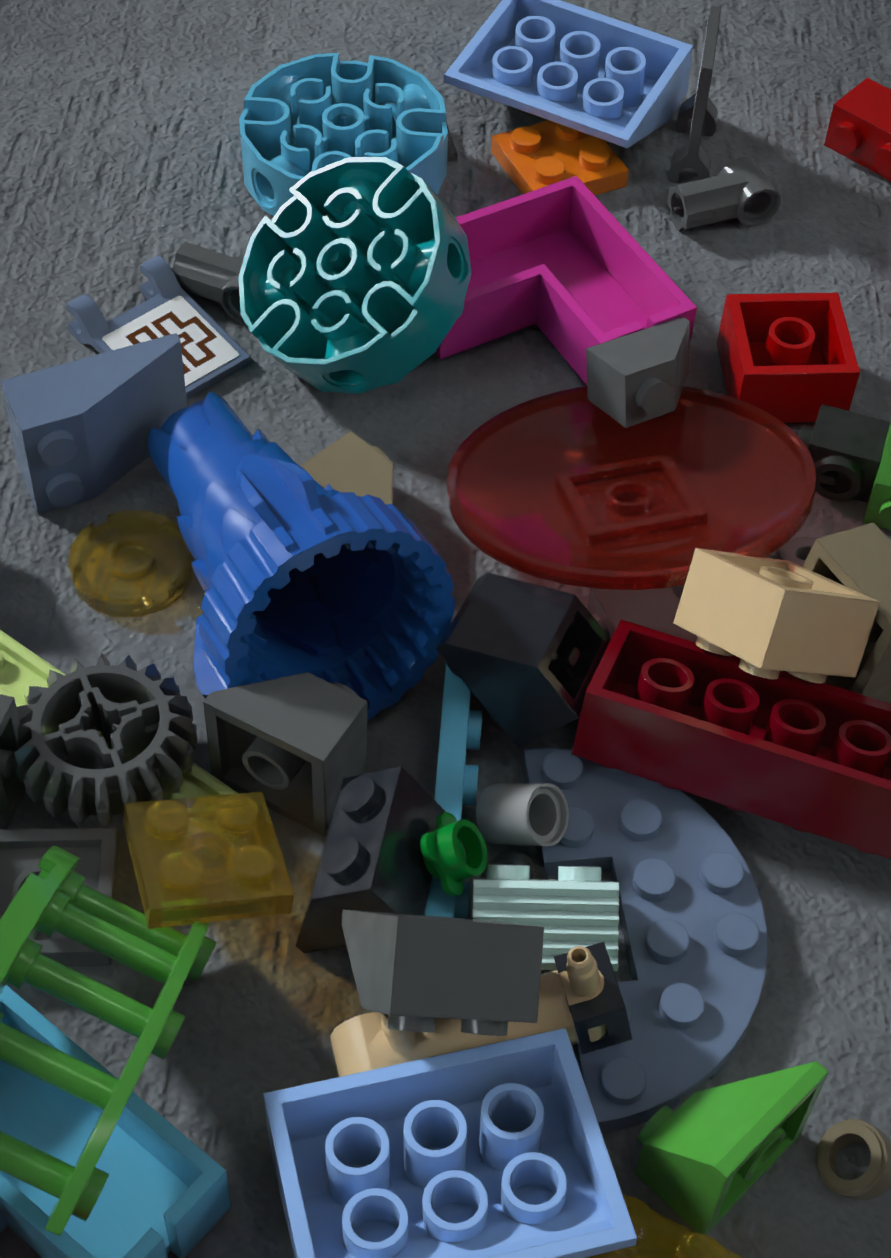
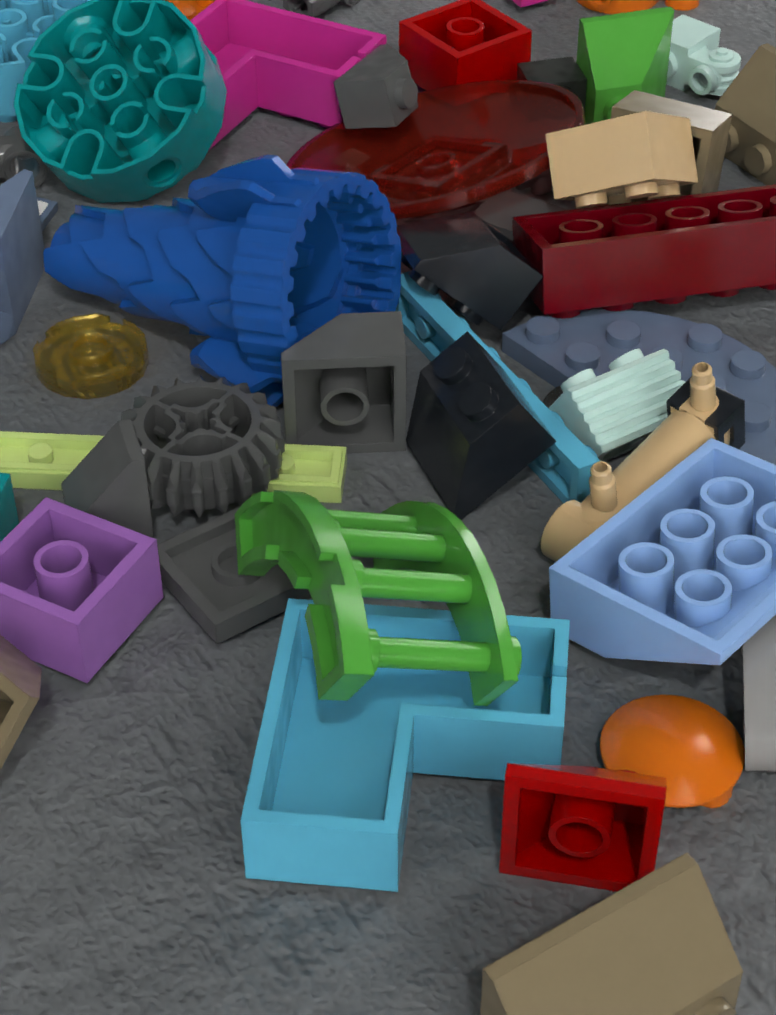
camera: 30 degrees left, 10 degrees down
(207, 859) = (355, 471): clear yellow plate -> none
(445, 969) = (616, 413): dark grey slope -> none
(454, 852) = (538, 380): green plate -> none
(522, 814) = (547, 357): light grey beam -> none

